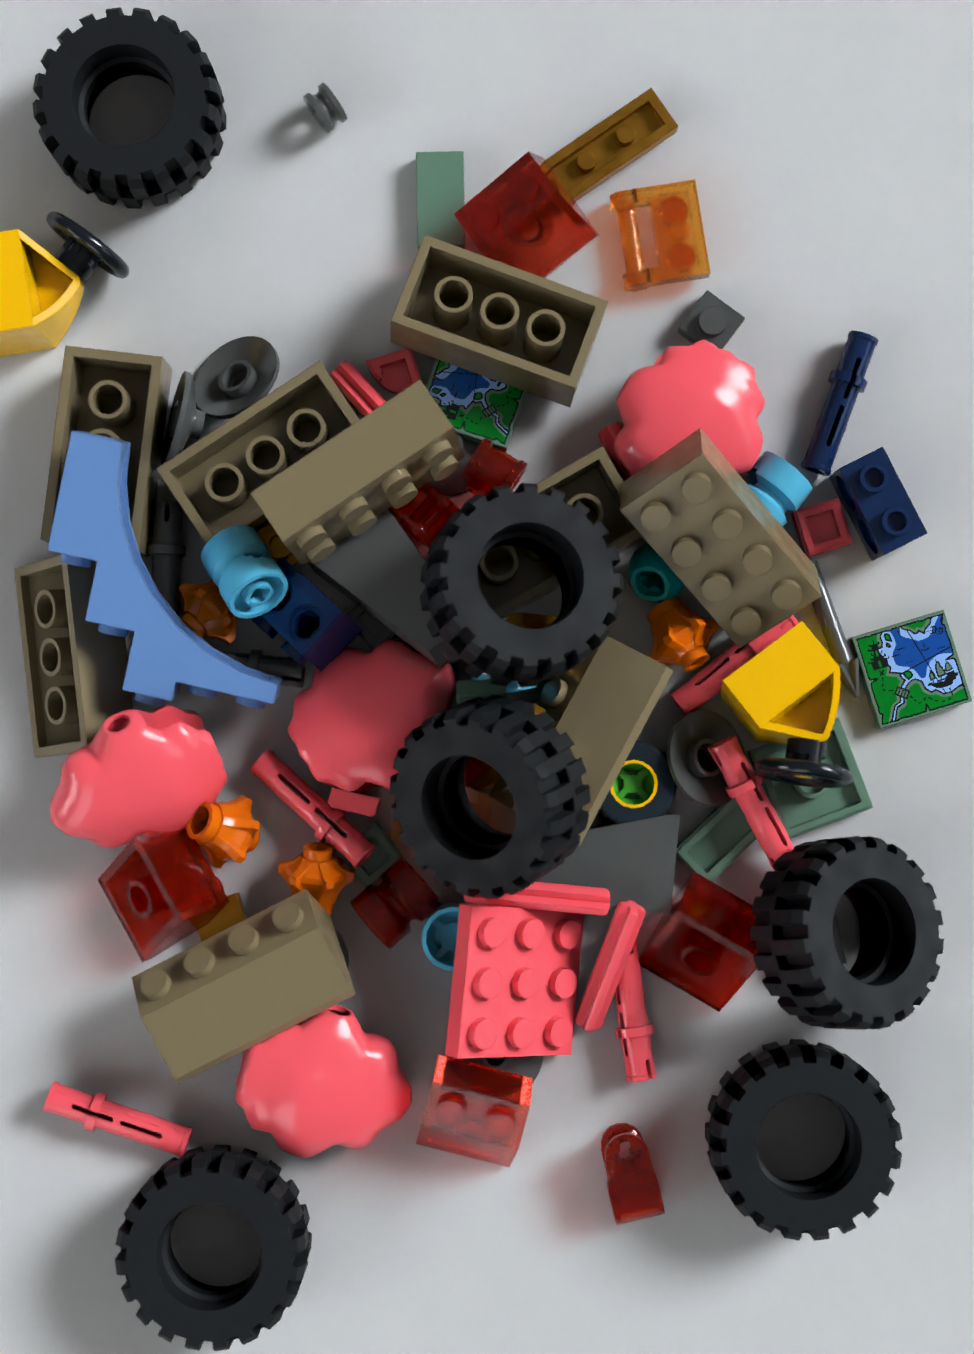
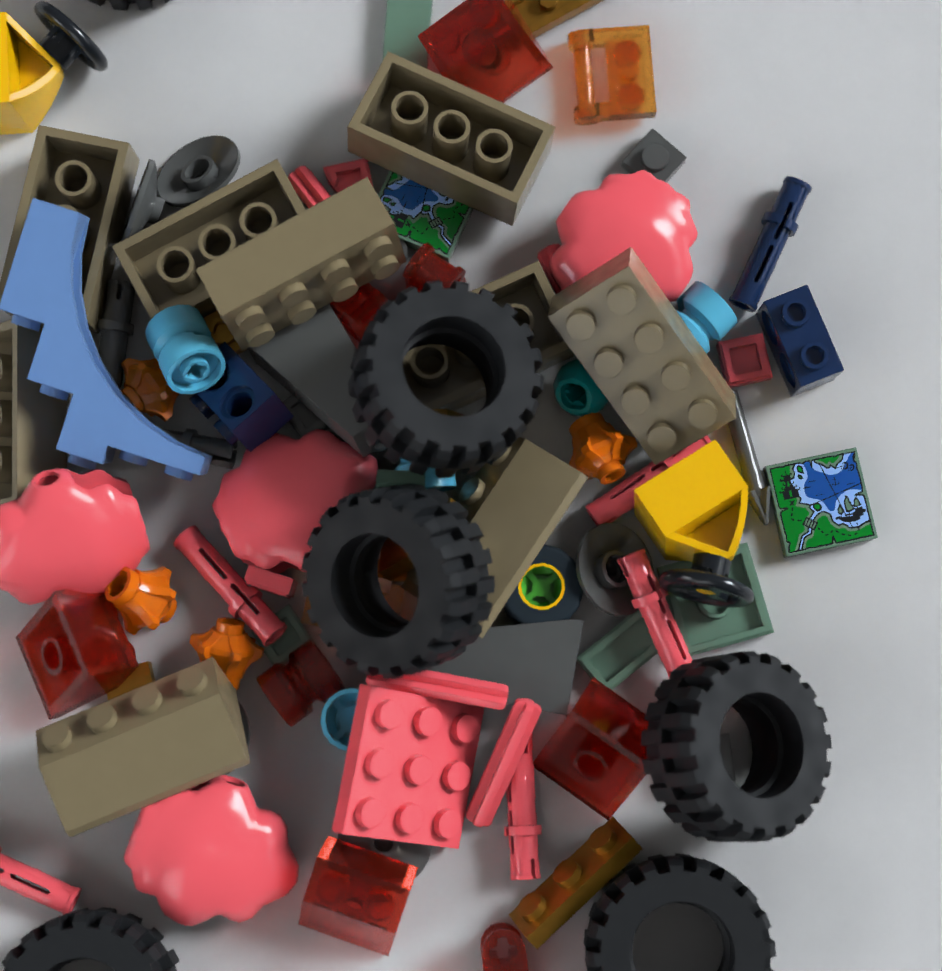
camera: 10 degrees right, 5 degrees down
(692, 1078) = (575, 882): none -> pearl gold plate

